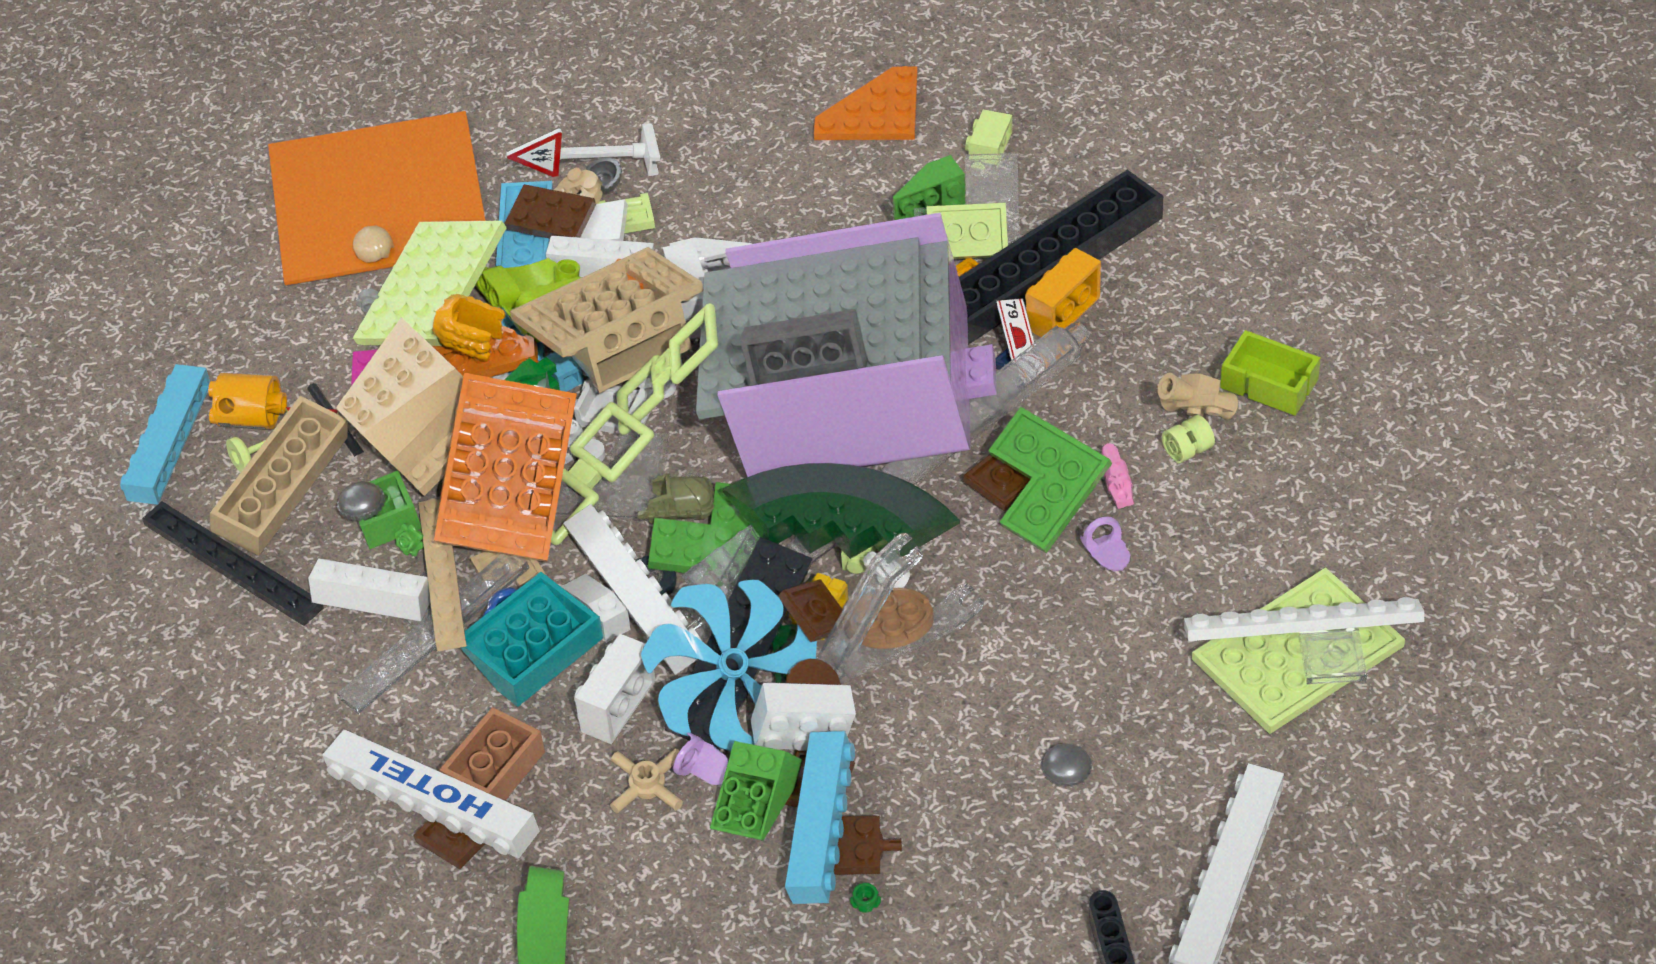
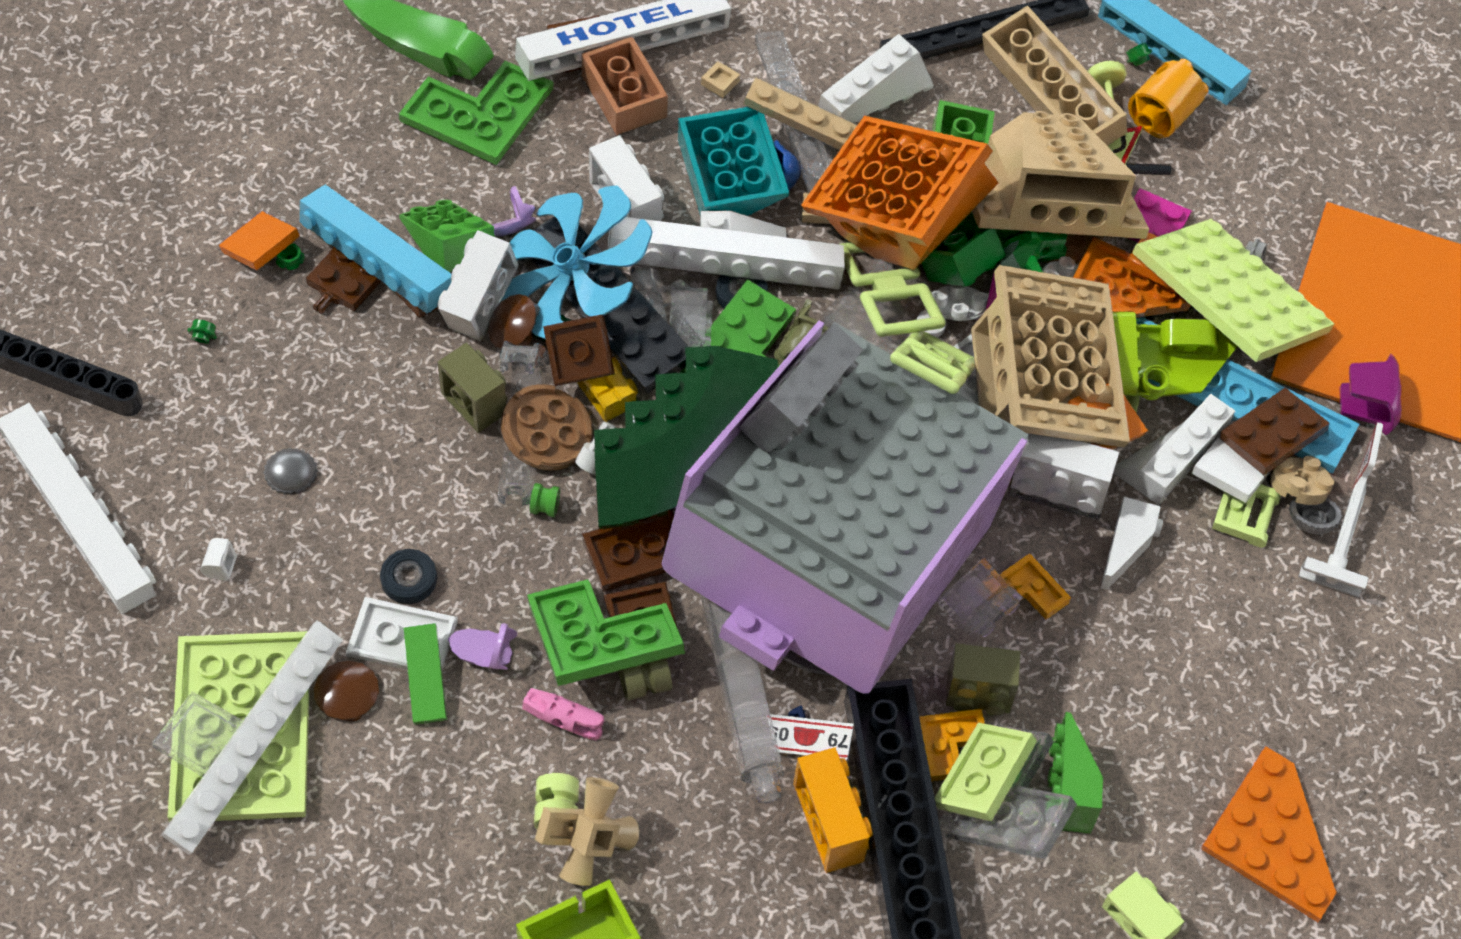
camera: 115 degrees right, 10 degrees up
(188, 453) = (1138, 54): none -> green plate
(361, 501) = (969, 110): flat silver hat -> none
(372, 244) = (1329, 280): tan hair -> none
(427, 709) = (720, 79): none -> tan plate
(468, 325) = (1134, 244): light orange piece -> none
(471, 176) = (1373, 393): none -> magenta piece
(608, 851) = (480, 124): none -> bright green plate
(645, 781) = (524, 175): tan bar -> none
(870, 924) = (259, 240): none -> orange tile
(899, 671) = (472, 386): none -> olive brick
(952, 578) = (545, 500): none -> bright green wheel
(972, 511) = (629, 551): none -> reddish brown plate
(992, 906) = (202, 331): none -> green plate
(1090, 643) = (408, 591): none -> black bush
(1141, 606) = (380, 632): none -> white tile
(1160, 566) = (425, 673): none -> bright green tile
(1186, 748) = (219, 559): none -> white brick
(1211, 602) = (346, 690): none -> reddish brown dish

